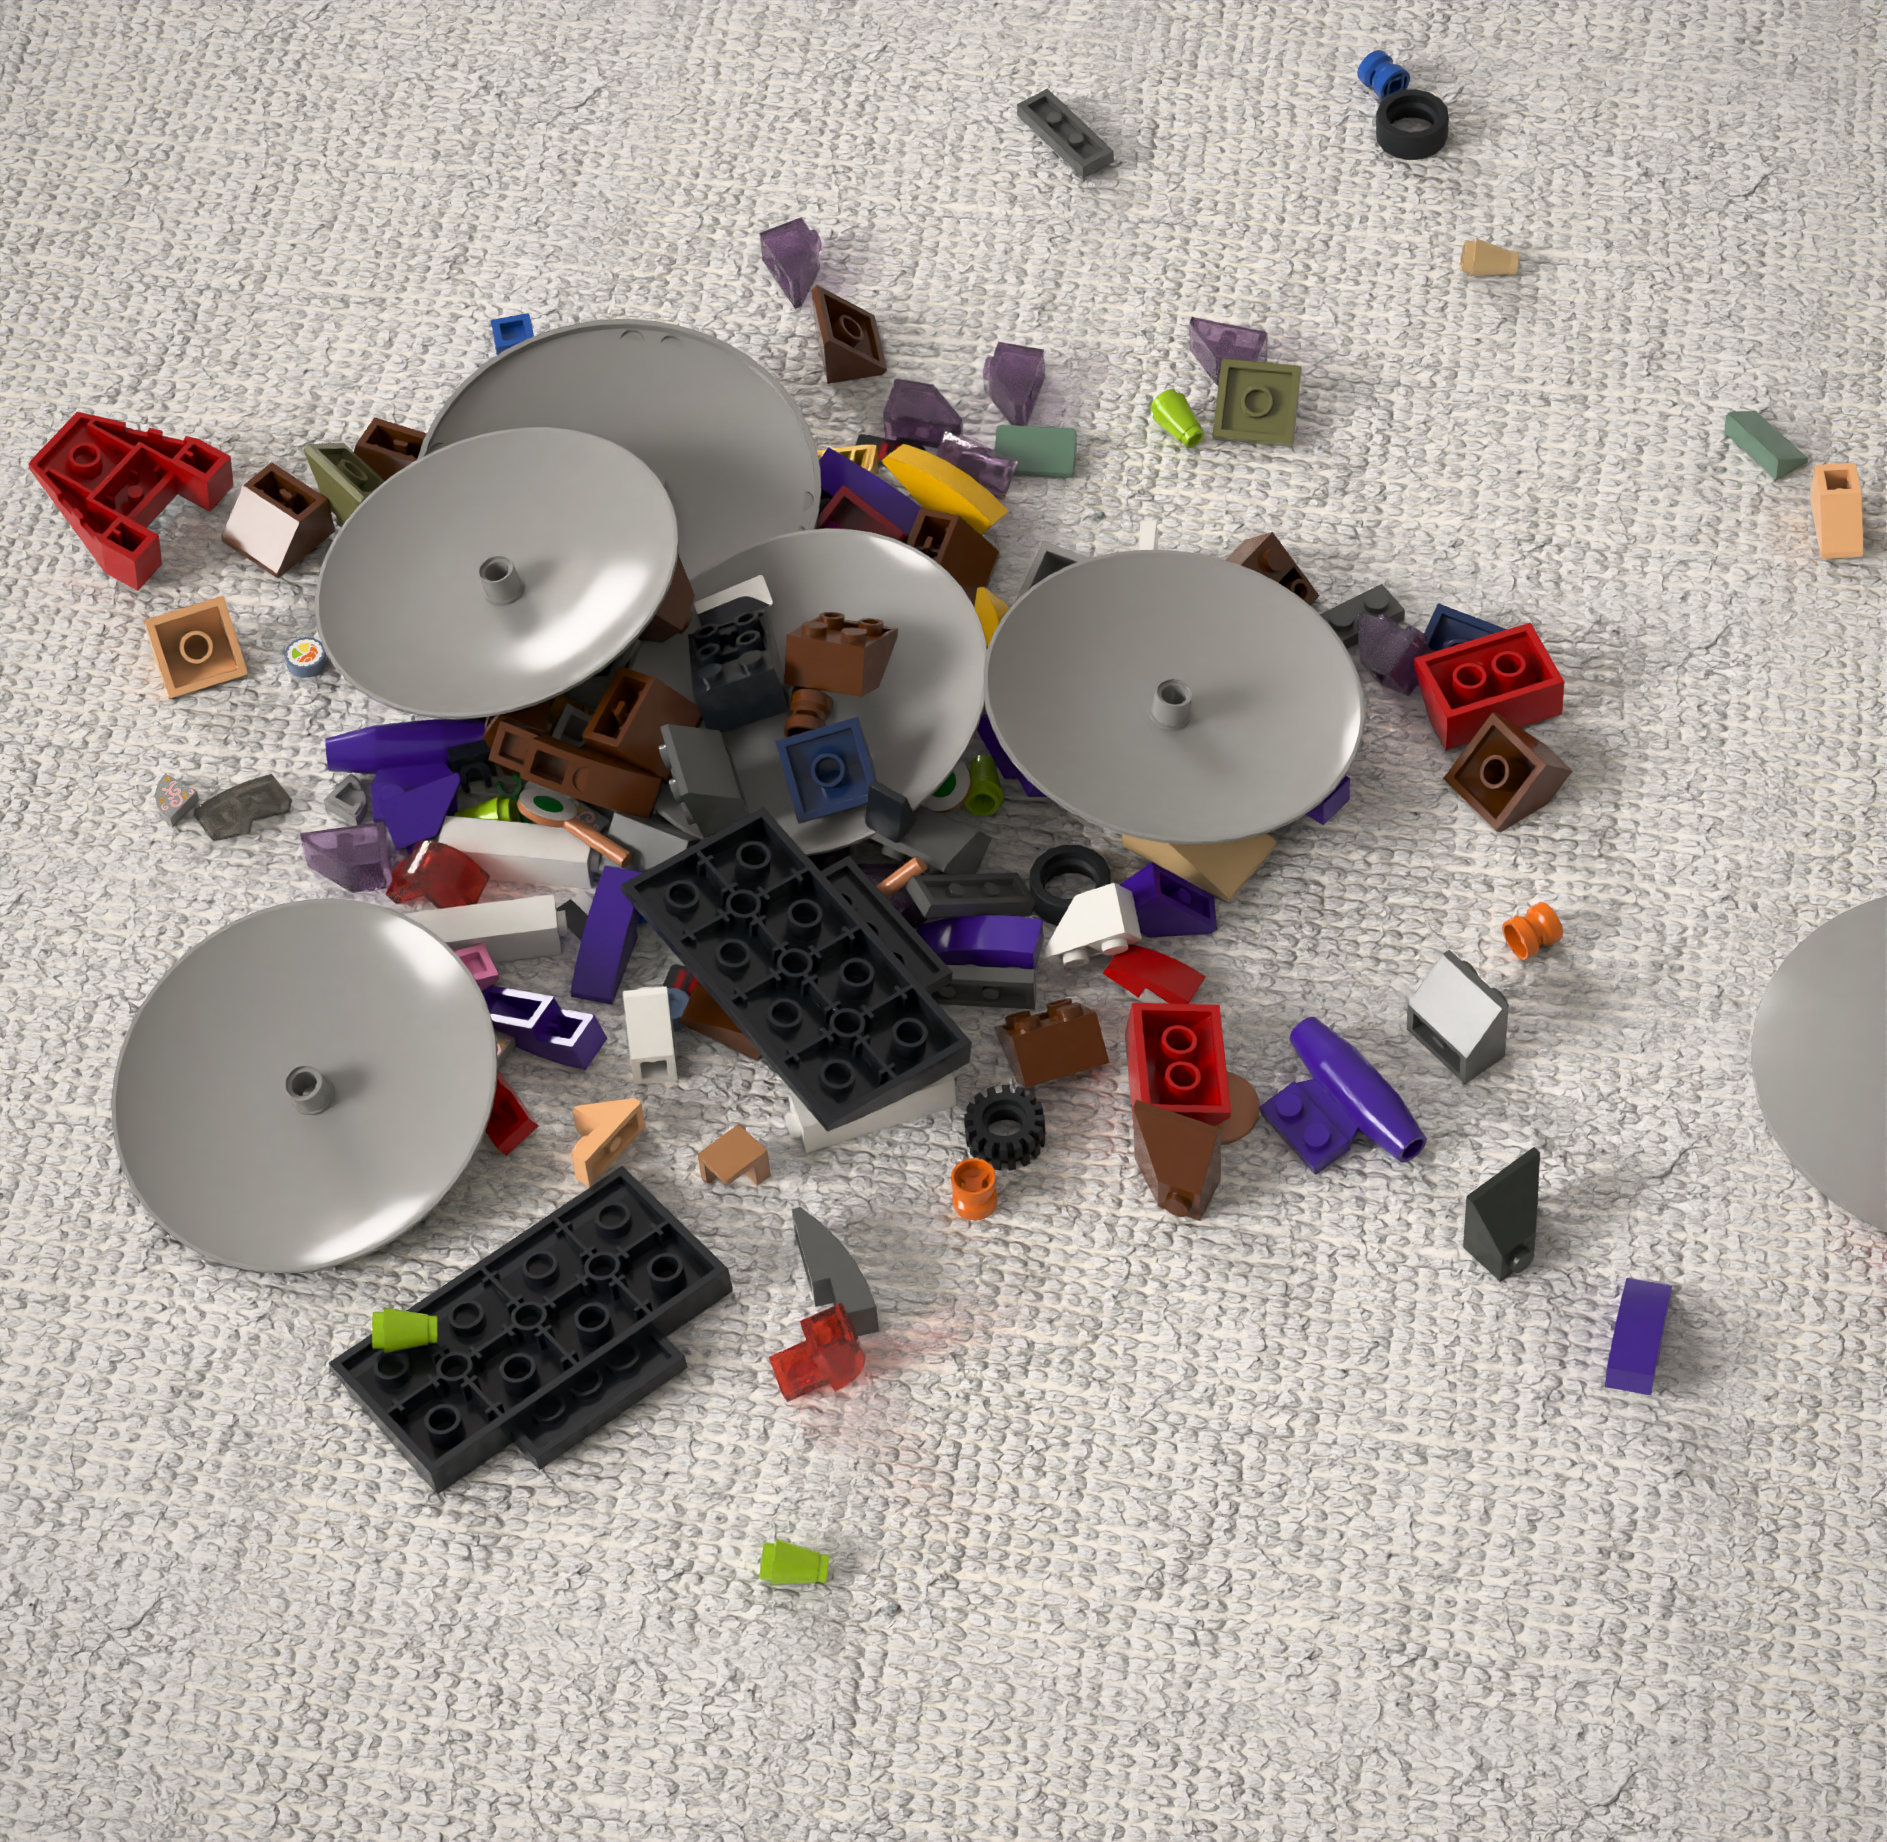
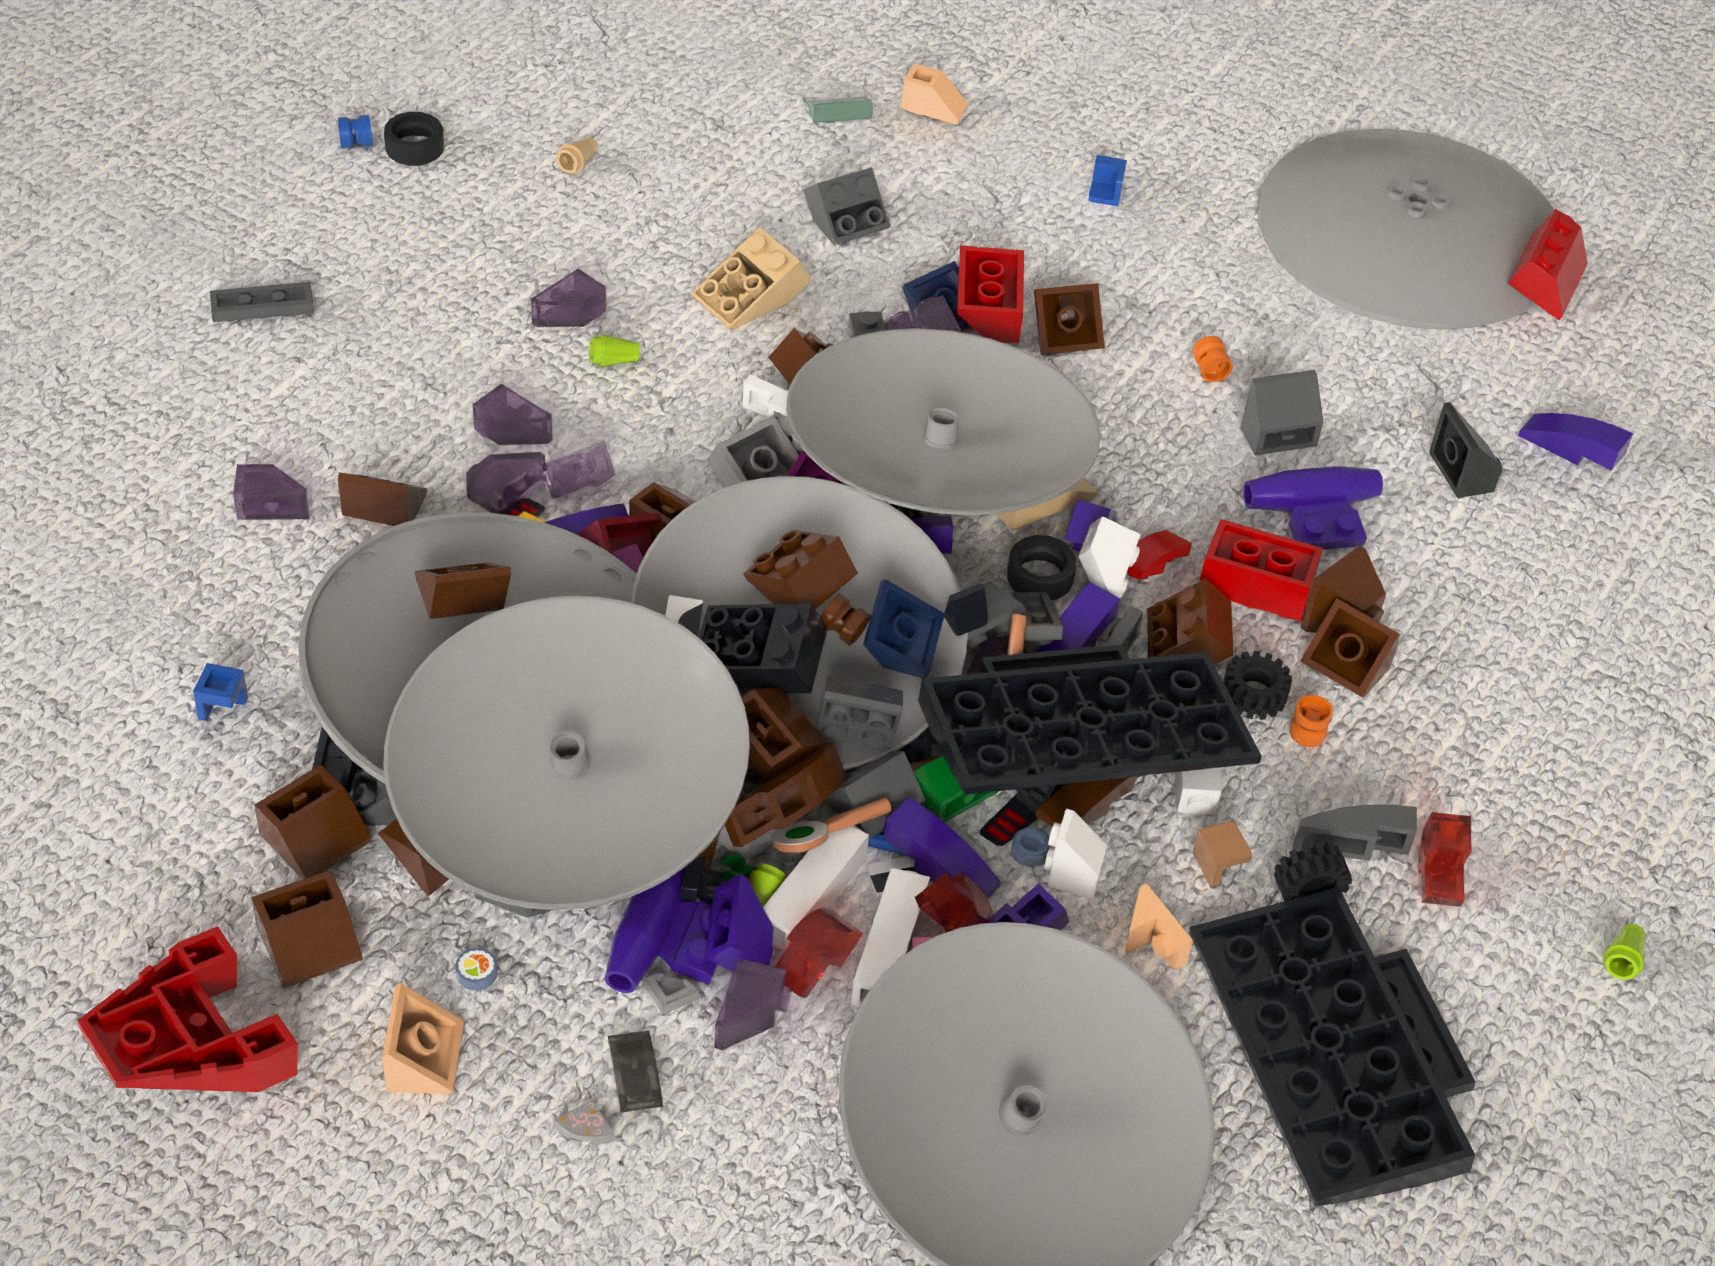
camera: 75 degrees left, 5 degrees down
(341, 477) = (341, 851): olive slope -> none
(402, 1330) = (1317, 1128): lime cone -> none
(524, 967) = (955, 902): none -> clear red brick
(668, 418) = (463, 589): none -> reddish brown slope
(731, 1239) = (1312, 871): none -> black tyre
(944, 487) = (607, 484): yellow slope -> none
(1039, 449) = (586, 429): sand green slope -> none
(1104, 1197) = (1352, 648): none -> reddish brown slope
(1257, 402) = (635, 303): olive tile -> none
(1374, 484) = (752, 281): none -> tan slope
(1565, 513) = (847, 206): none -> dark grey slope
(1812, 737) = (1107, 180): none -> blue panel

